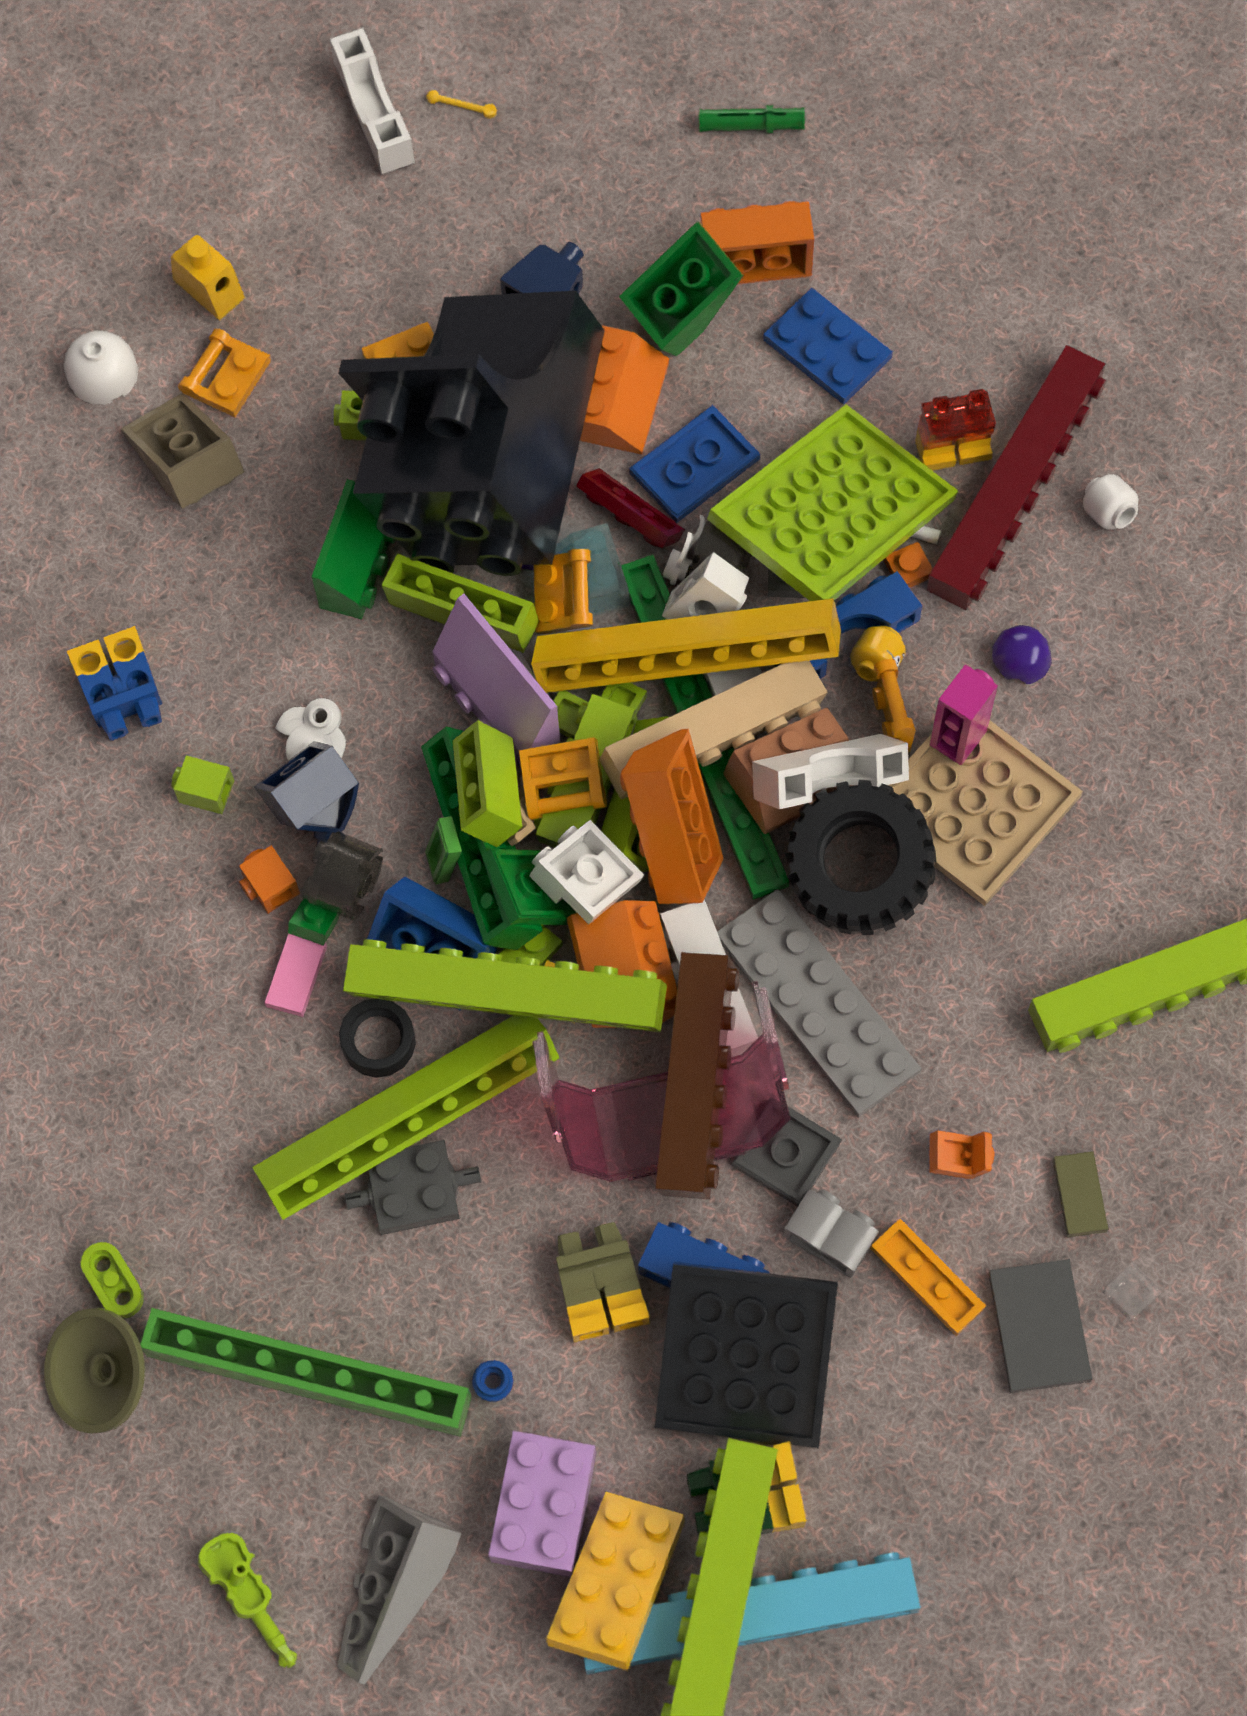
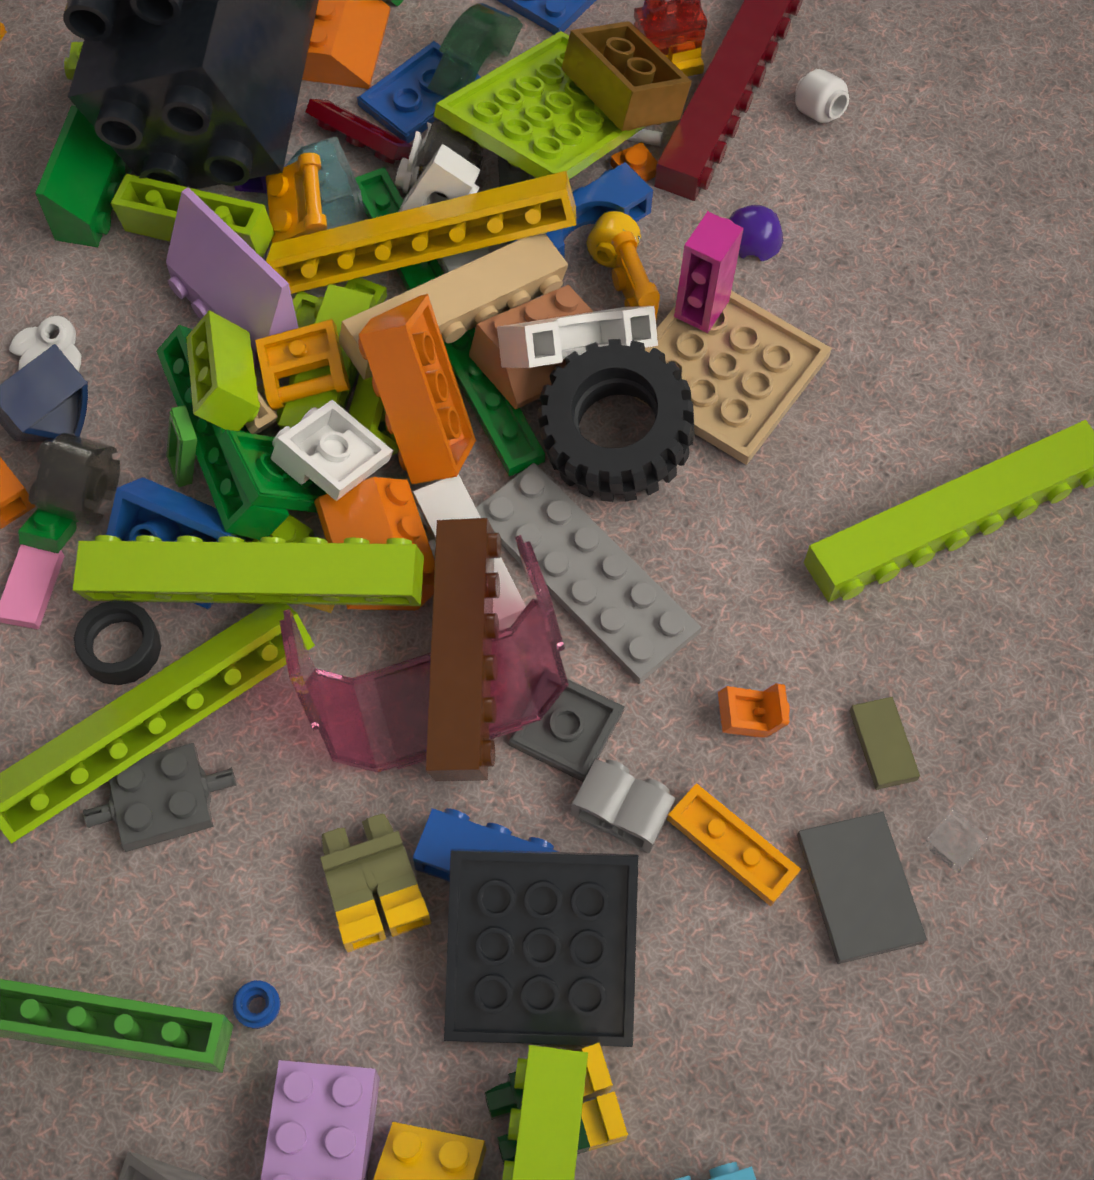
camera: 10 degrees left, 5 degrees down
(754, 417) = (468, 45): none -> clear green arch
(905, 479) = (625, 75): none -> pearl gold brick

